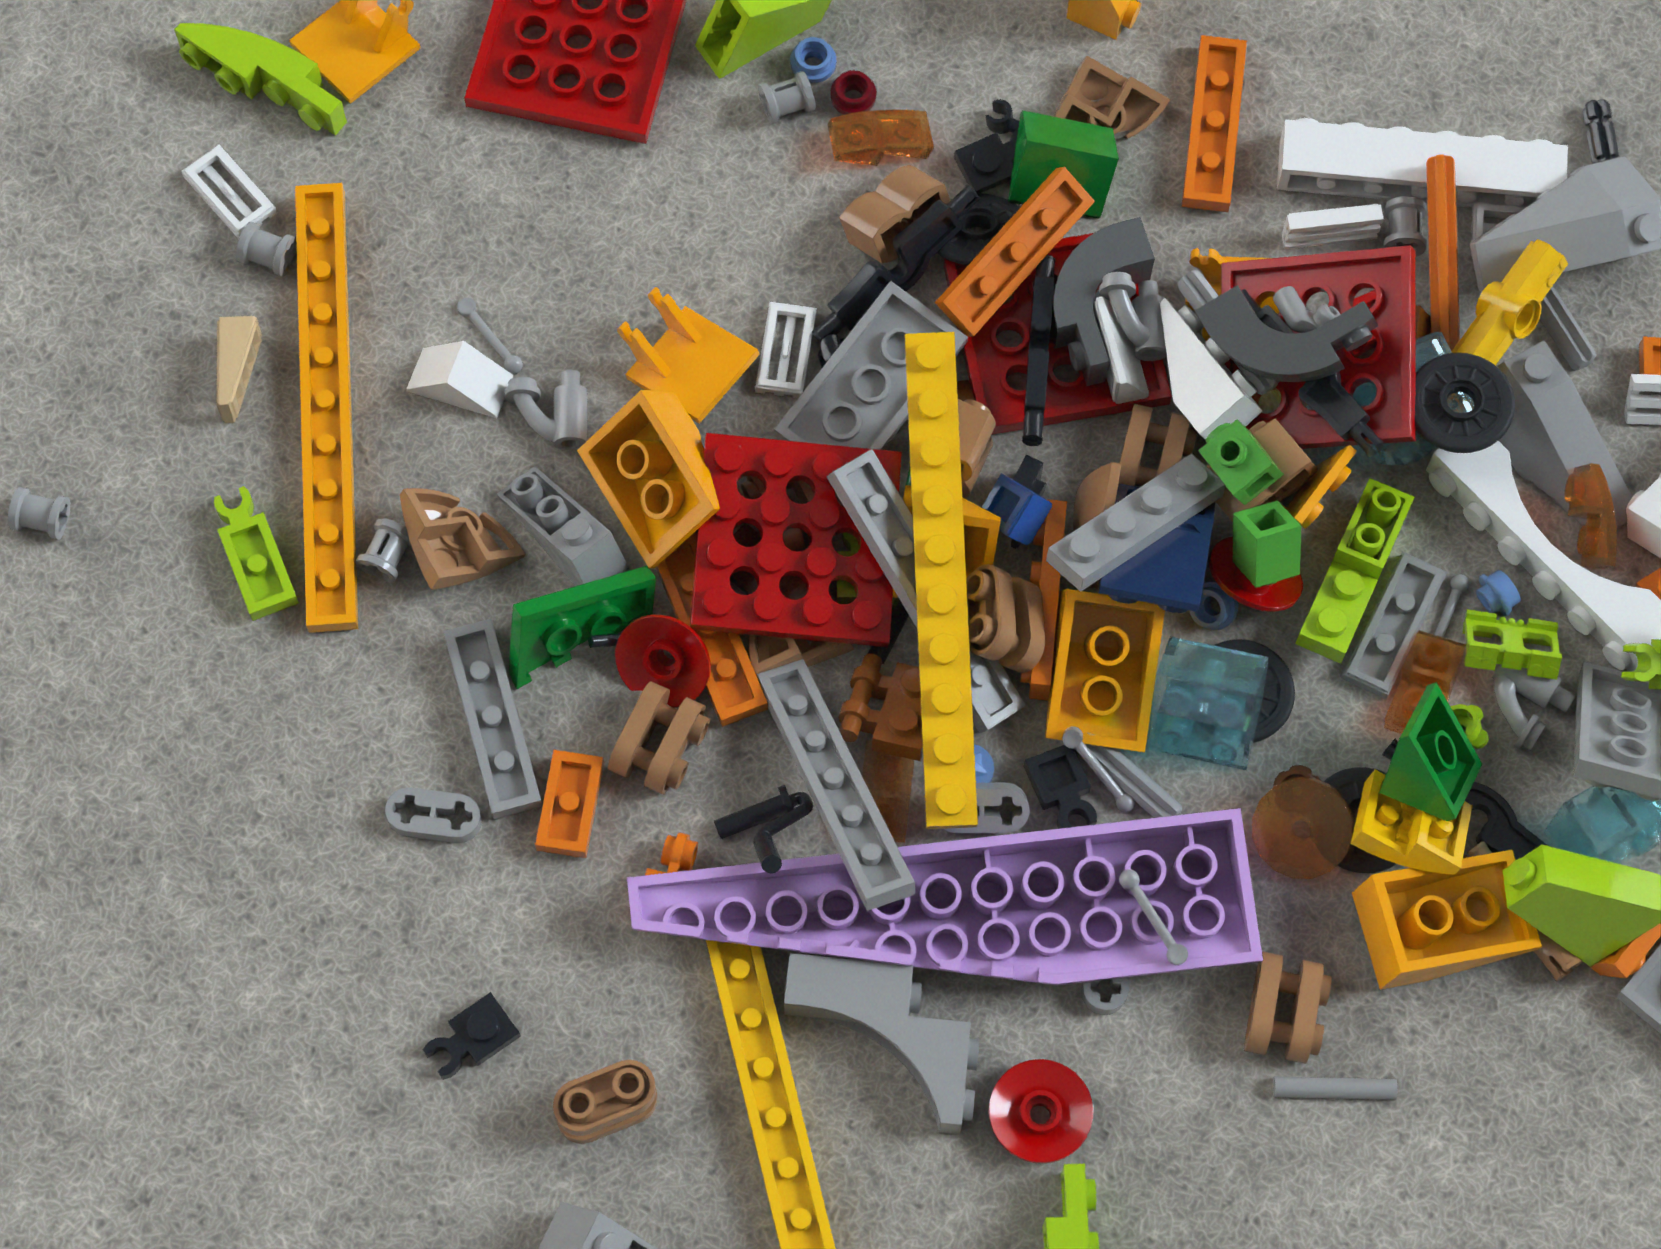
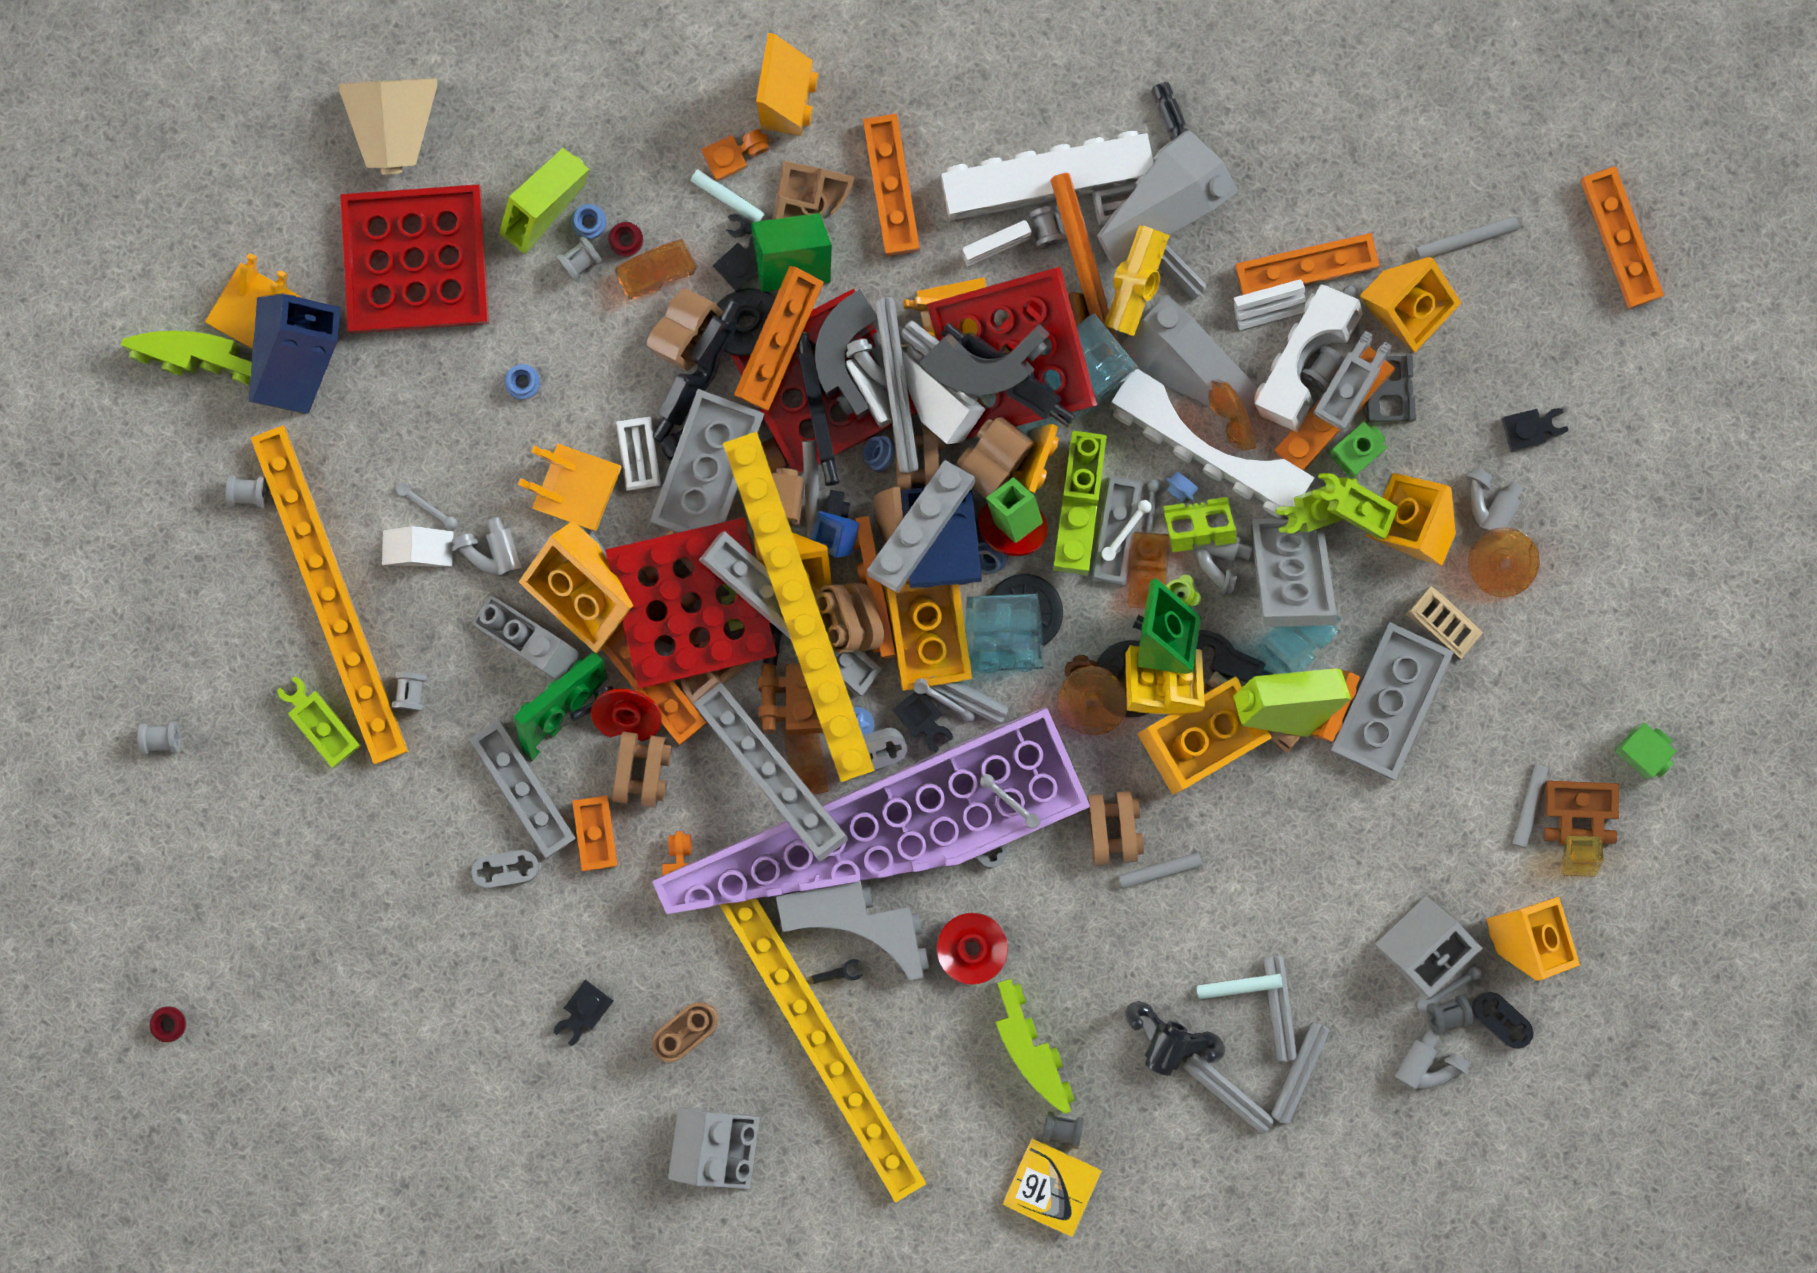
camera: 15 degrees left, 15 degrees up
(203, 164) = (228, 469): white tile -> none
(236, 353) = (254, 581): tan slope -> none
(385, 94) = (291, 350): none -> dark blue slope
(453, 540) = (453, 670): medium nougat brick -> none
(665, 209) = (518, 371): none -> medium blue plate
(762, 812) = (725, 799): black piece -> none
(843, 1092) = (836, 973): none -> black hand
(995, 78) = (727, 197): none -> light aqua piece
(1003, 439) = (811, 483): none -> light grey bar
(1013, 38) = (727, 158): none -> orange plate
(1103, 435) = (879, 453): none -> medium blue plate
(1153, 346) = (896, 385): none -> light grey axle
(1240, 461) = (980, 460): bright green brick -> none
(1296, 314) = (996, 339): light grey arm -> none
(1377, 646) = (1109, 553): none -> white hinge
(1462, 431) = (1143, 361): black wheel -> none

